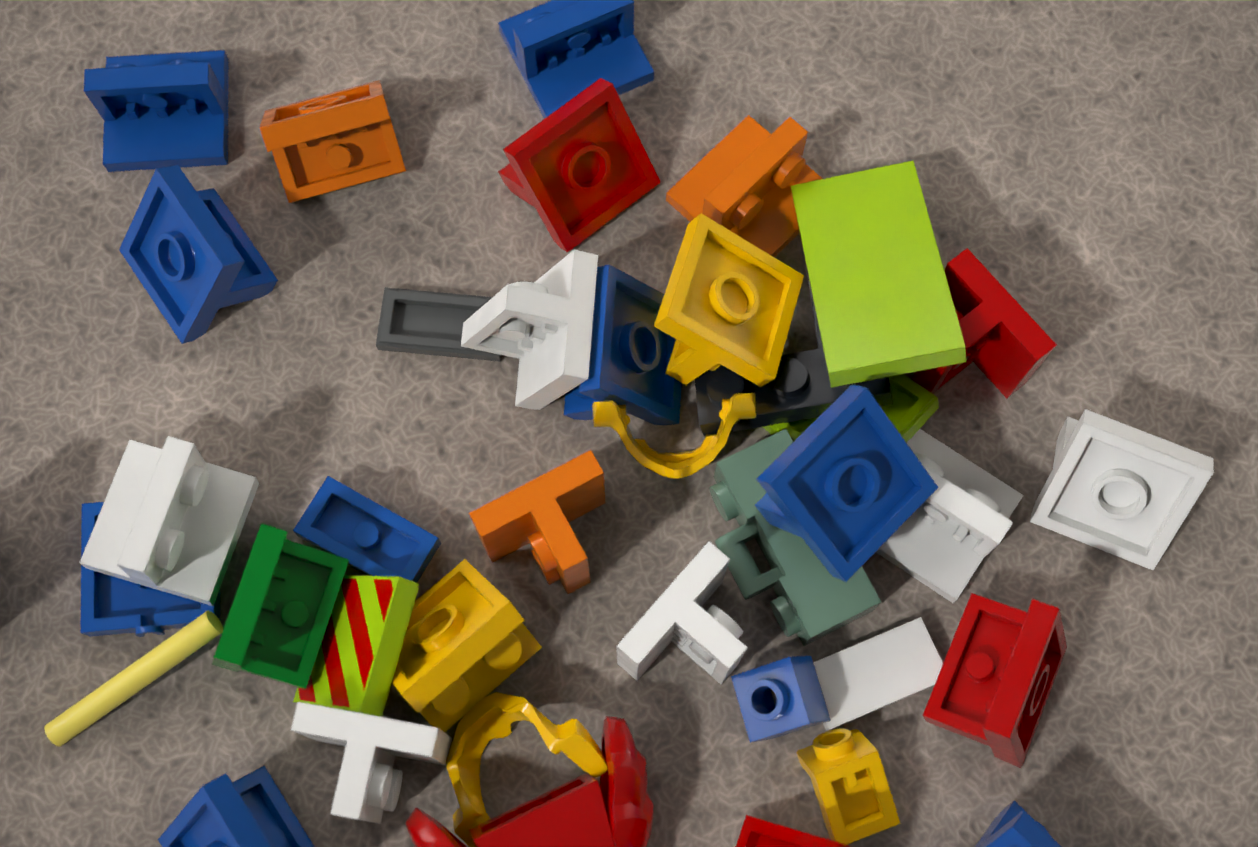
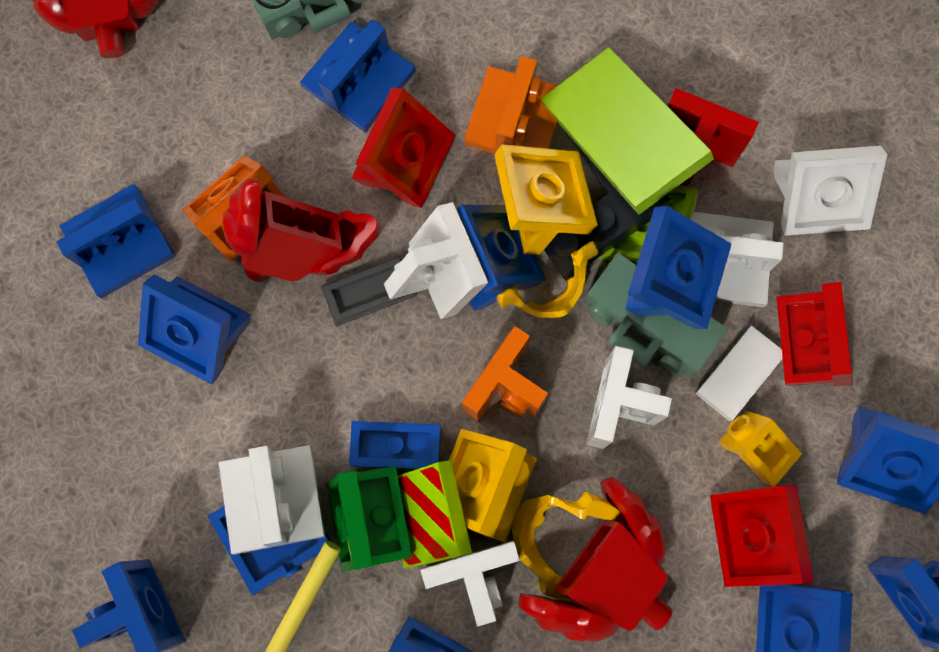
camera: 20 degrees left, 5 degrees up
(374, 203) = (291, 237): none -> red torso
(797, 693) = (705, 407): blue plate -> none

